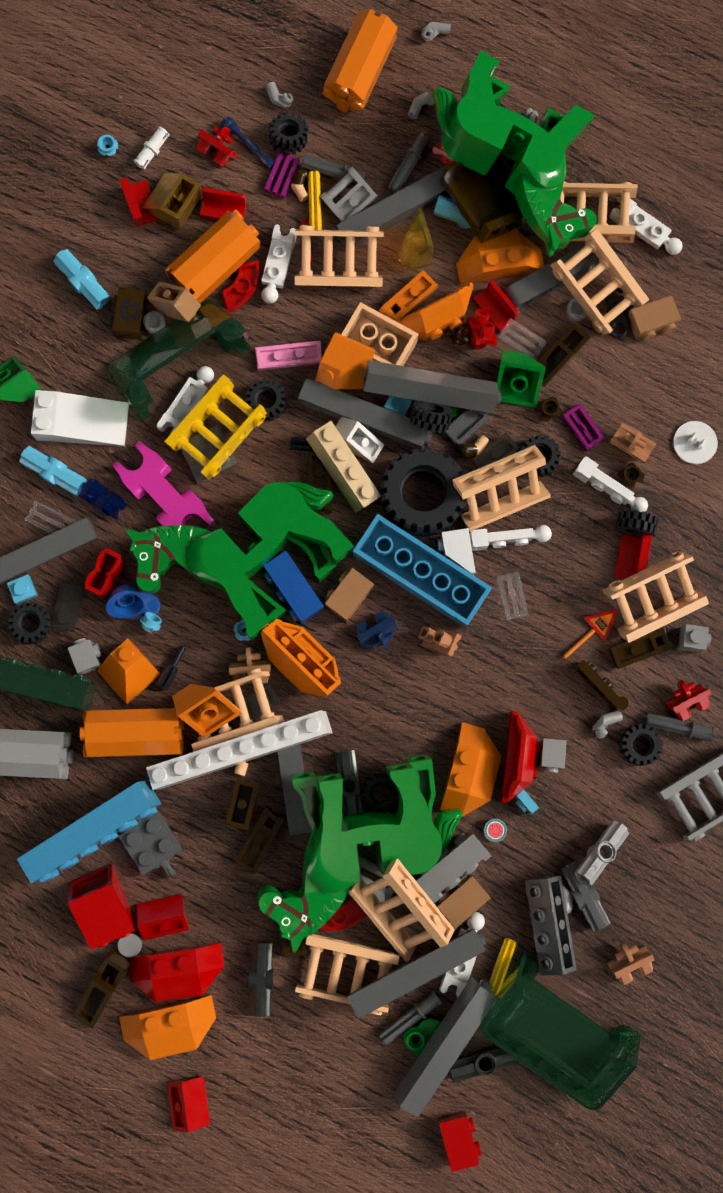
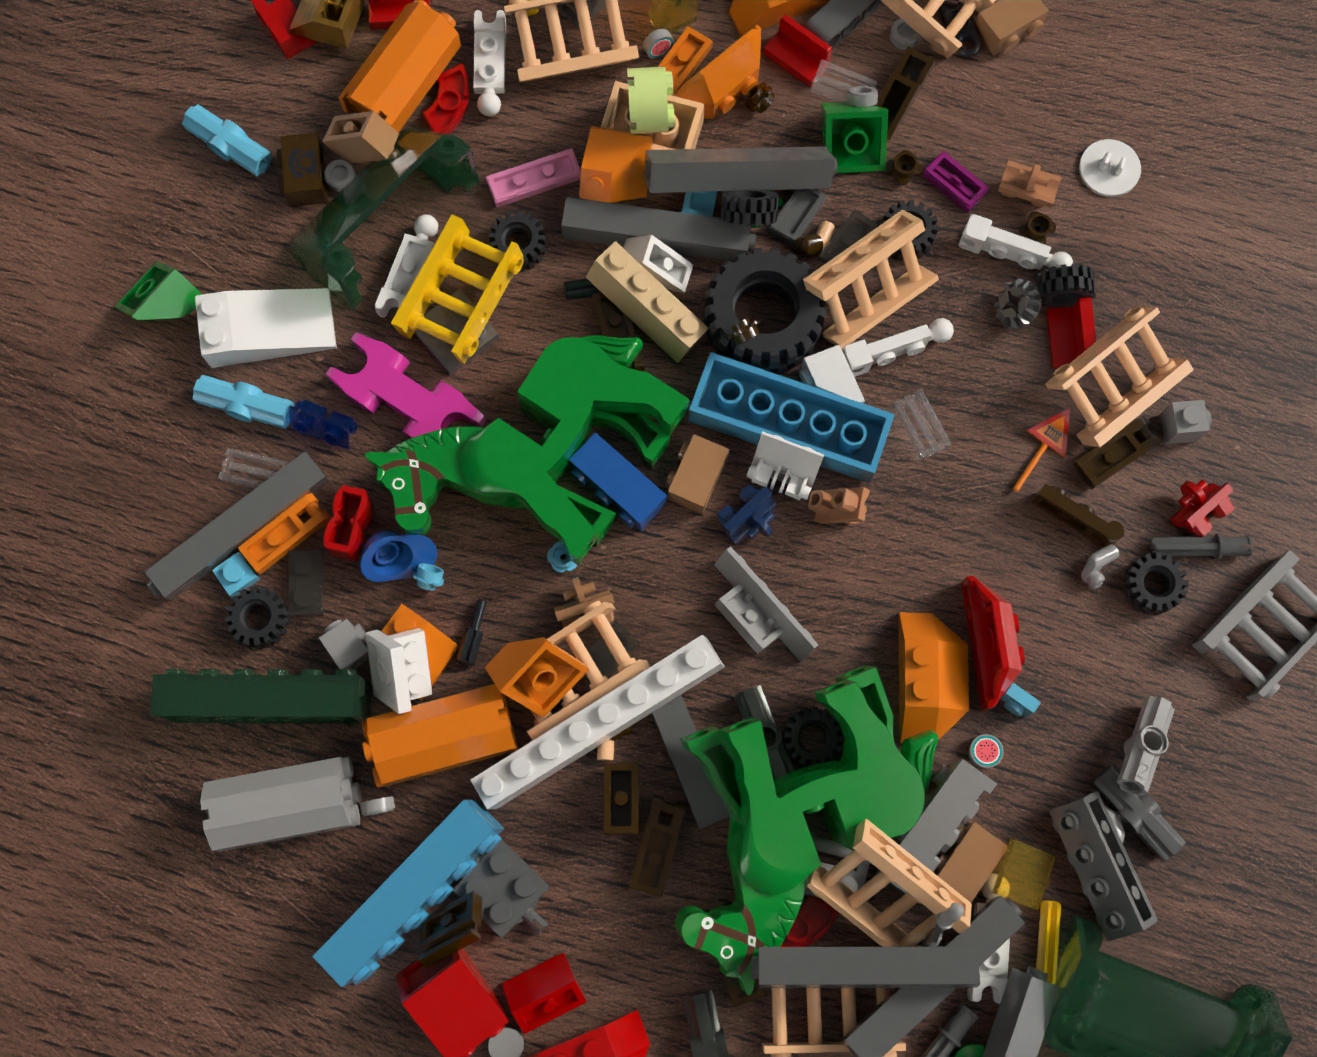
camera: 10 degrees left, 5 degrees down
(60, 569) = (284, 533): none -> orange plate
(81, 769) = (377, 806): none -> light grey tile
(110, 861) = (450, 929): none -> dark brown plate
(116, 681) = (399, 667): none -> white bracket
(300, 658) = (652, 576): orange wedge -> none
(365, 700) = (757, 611): none -> light grey bracket
(372, 954) = (867, 967): none -> dark grey brick
(377, 326) = (649, 100): none -> yellowish green brick
(399, 277) = (658, 43): none -> tile
(402, 507) = (744, 331): none -> dark brown plate
(410, 602) = (786, 463): none -> white hinge
(430, 937) = (944, 921): none -> light grey piece
(481, 330) = (787, 84): red hips -> none
(497, 918) = (1024, 874): none -> clear yellow piece
(531, 352) = (862, 96): none -> light grey tile
(552, 754) = (1038, 625): light grey brick -> none
(606, 532) = (1028, 306): none -> dark grey gear
(630, 960) = (1227, 889): nougat hips -> none

